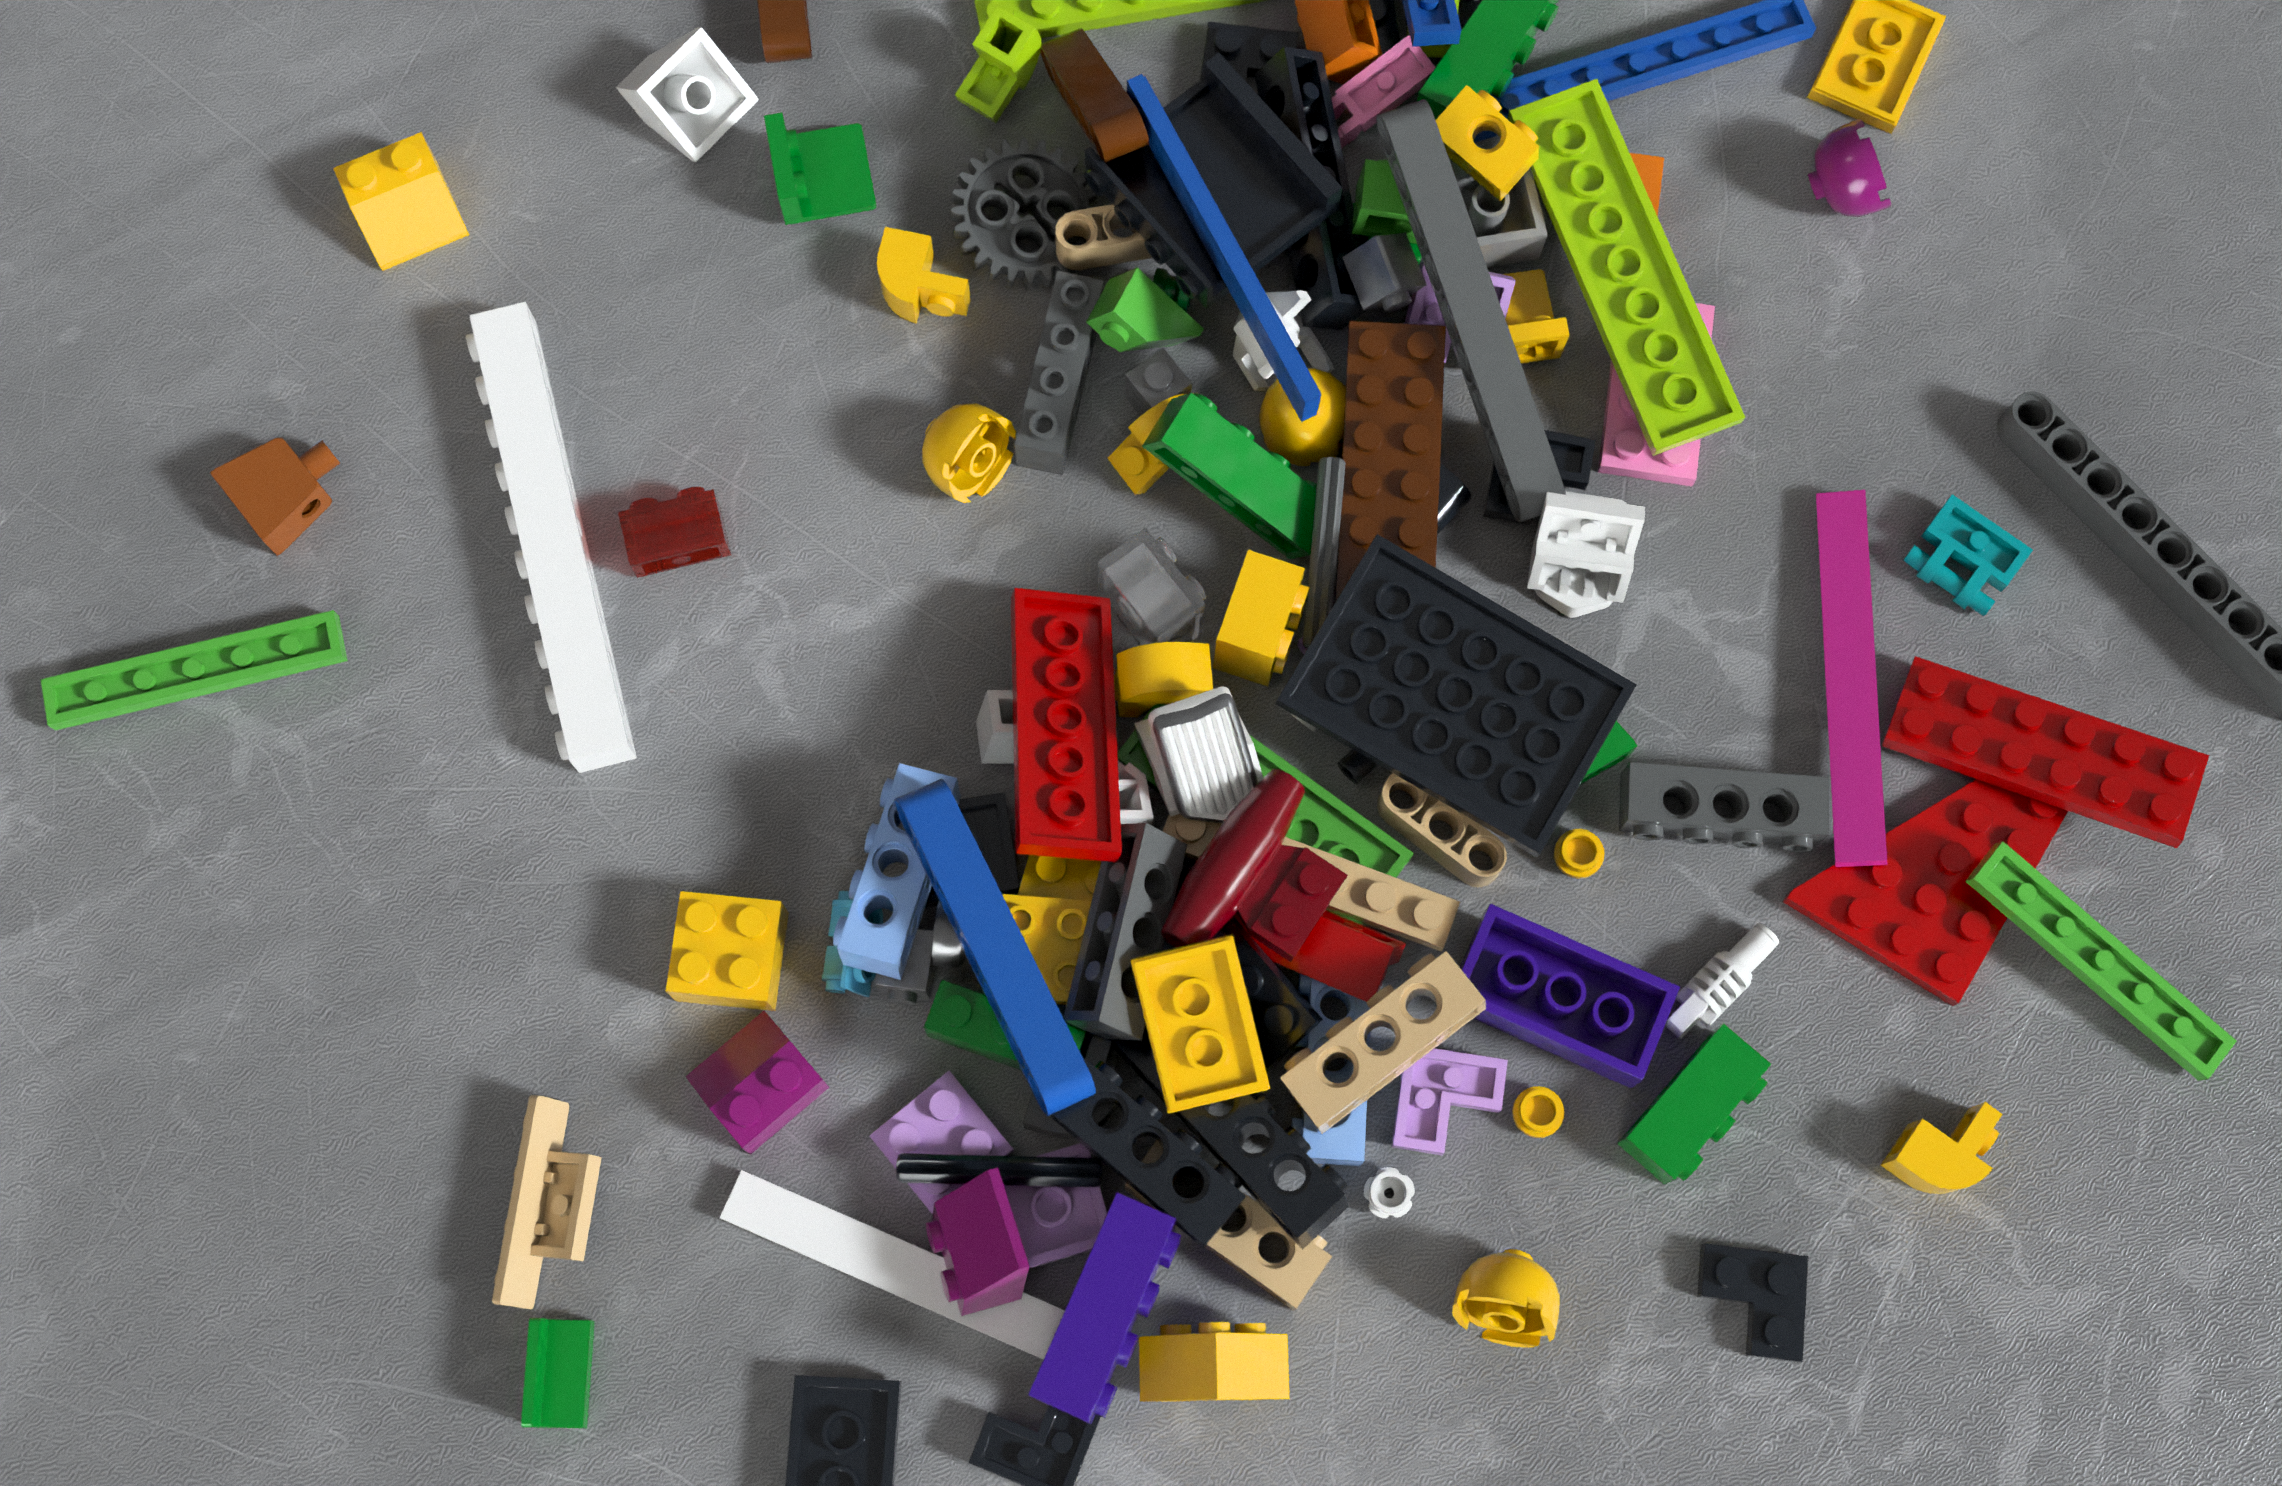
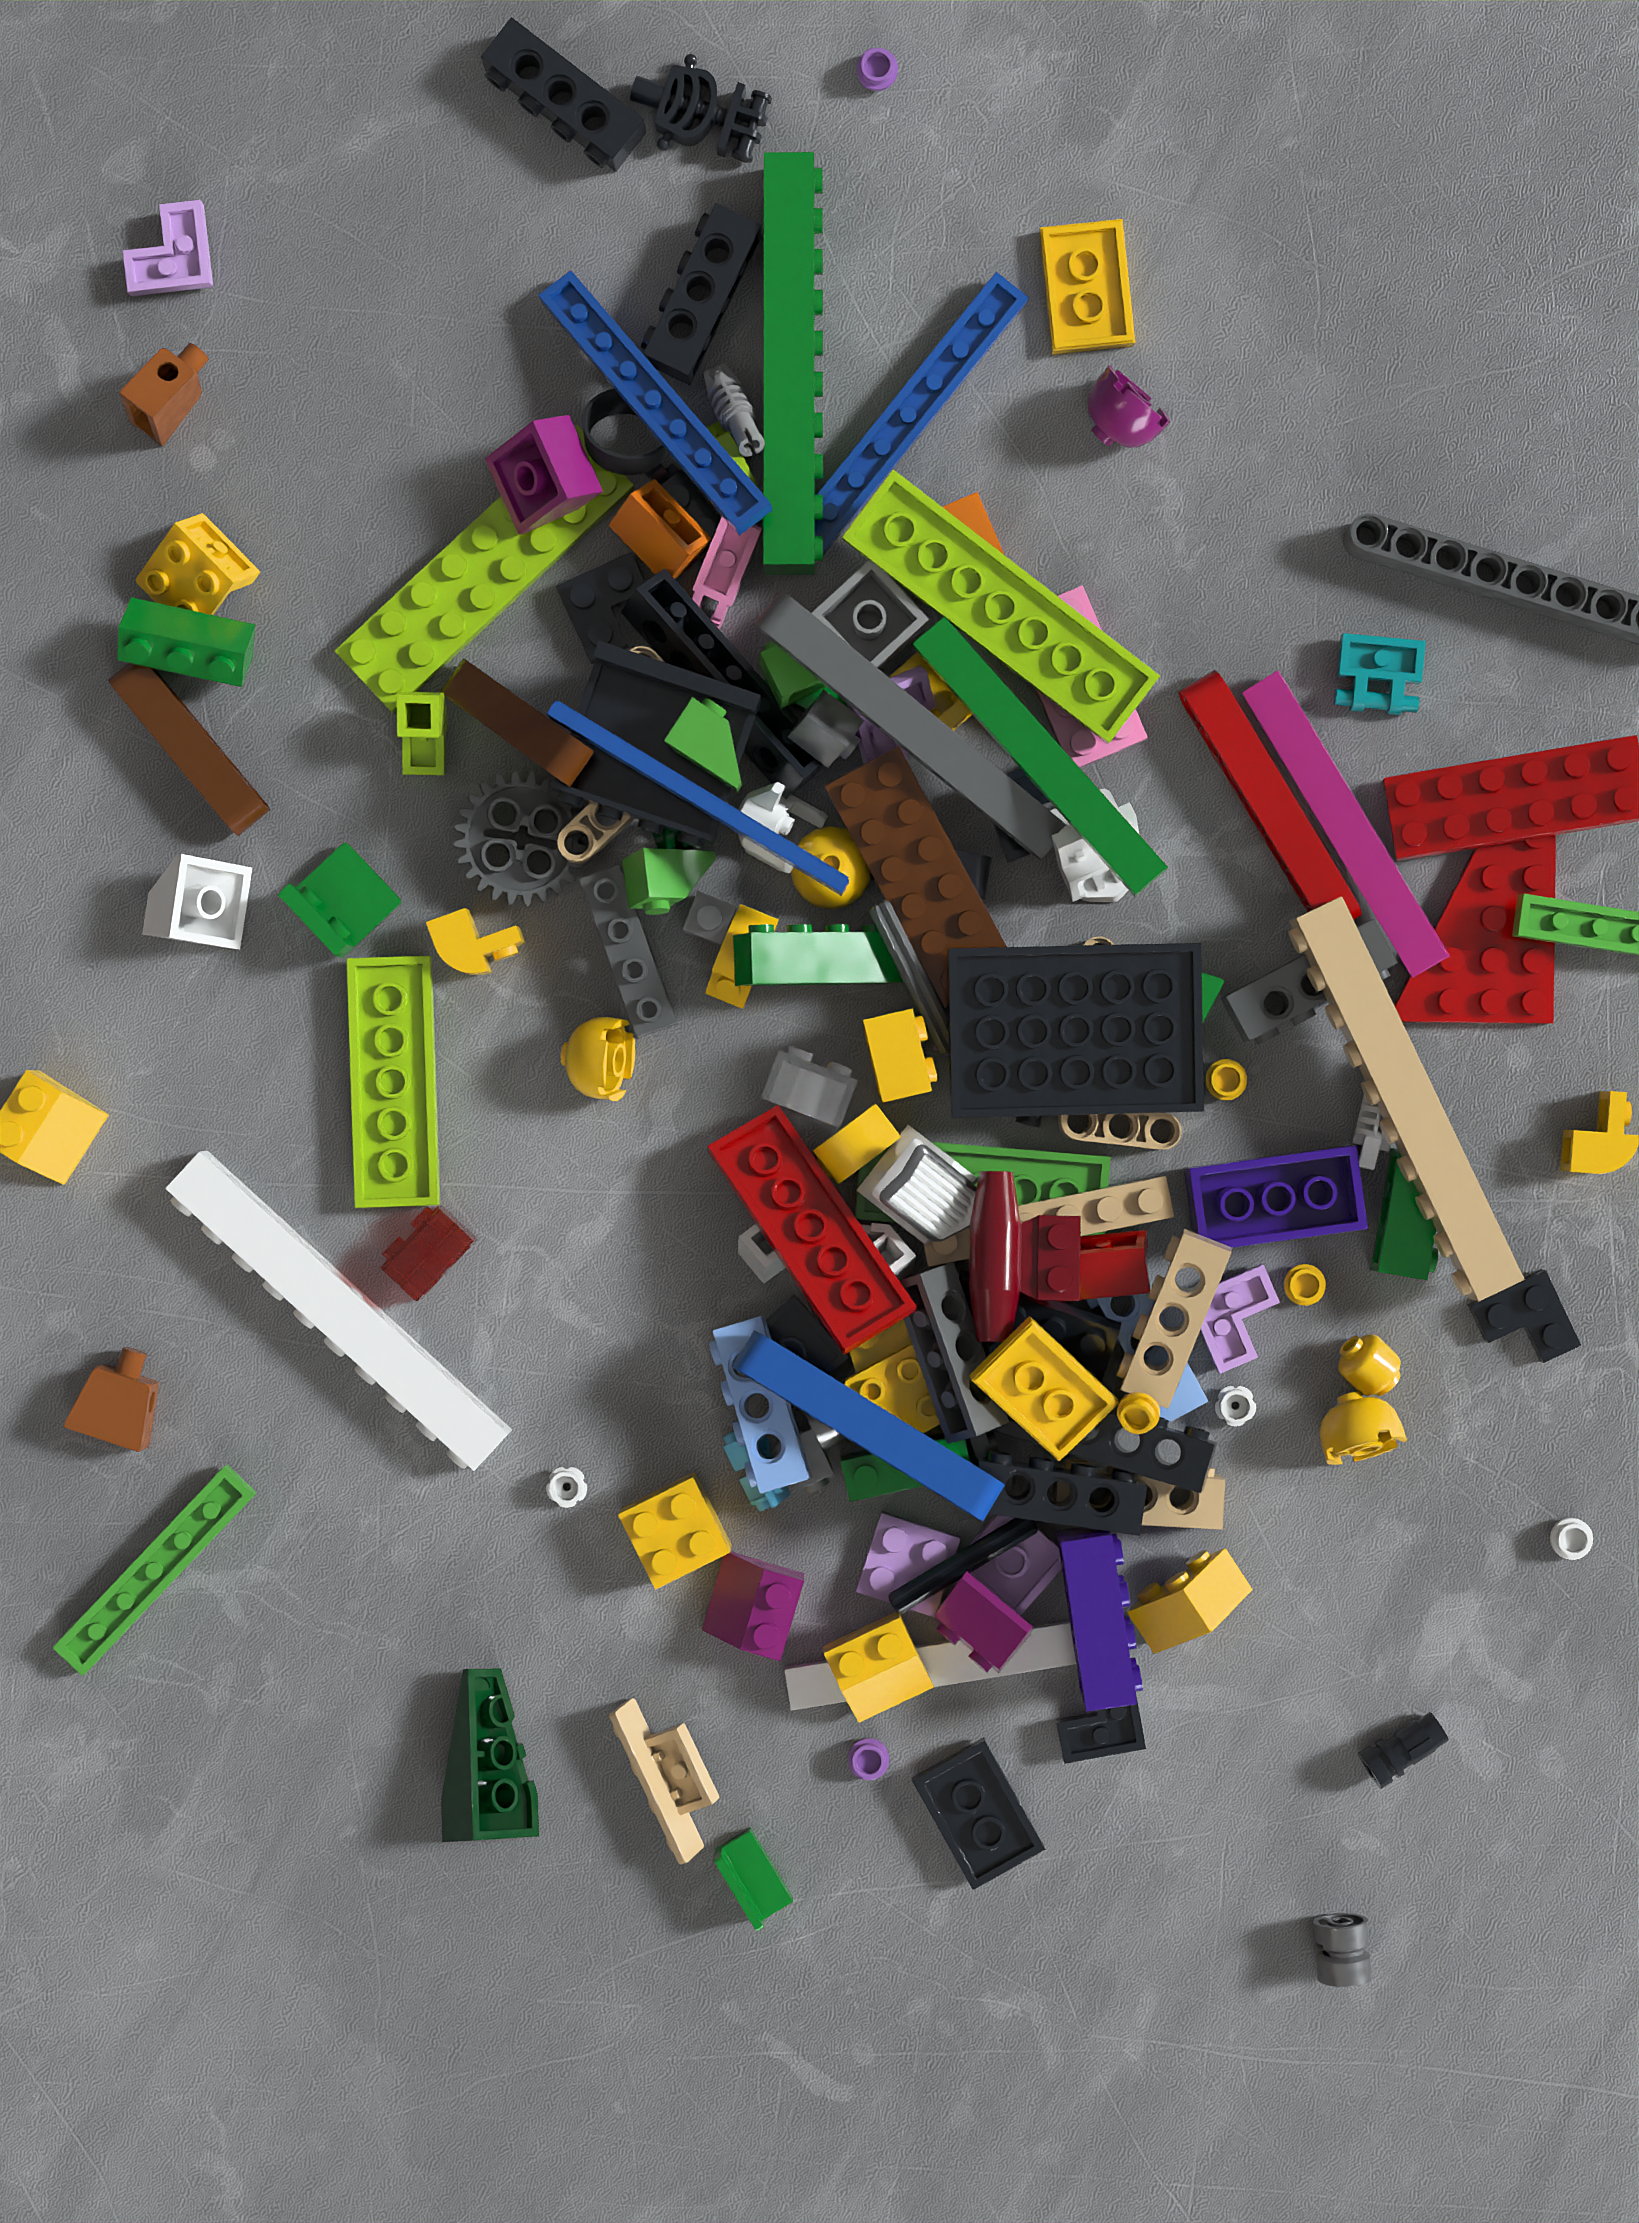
camera: 30 degrees left, 15 degrees up
(362, 1085) = (485, 1776): none -> dark green wedge
(641, 834) = (563, 1497): none -> white plate
(752, 359) = (393, 1081): none -> lime plate
(765, 1324) = (868, 1758): none -> medium lavender plate
(838, 1225) = (877, 1666): none -> yellow slope
(1261, 199) = (706, 741): none -> bright green slope
(1284, 1110) = (1138, 1412): none -> yellow plate
(1492, 168) = (860, 598): yellow brick -> none
(1559, 1236) = (1369, 1365): none -> yellow head
(1581, 416) = (1040, 757): none -> green tile
(1759, 976) = (1406, 1100): none -> tan brick
(1783, 614) = (1264, 794): none -> red beam

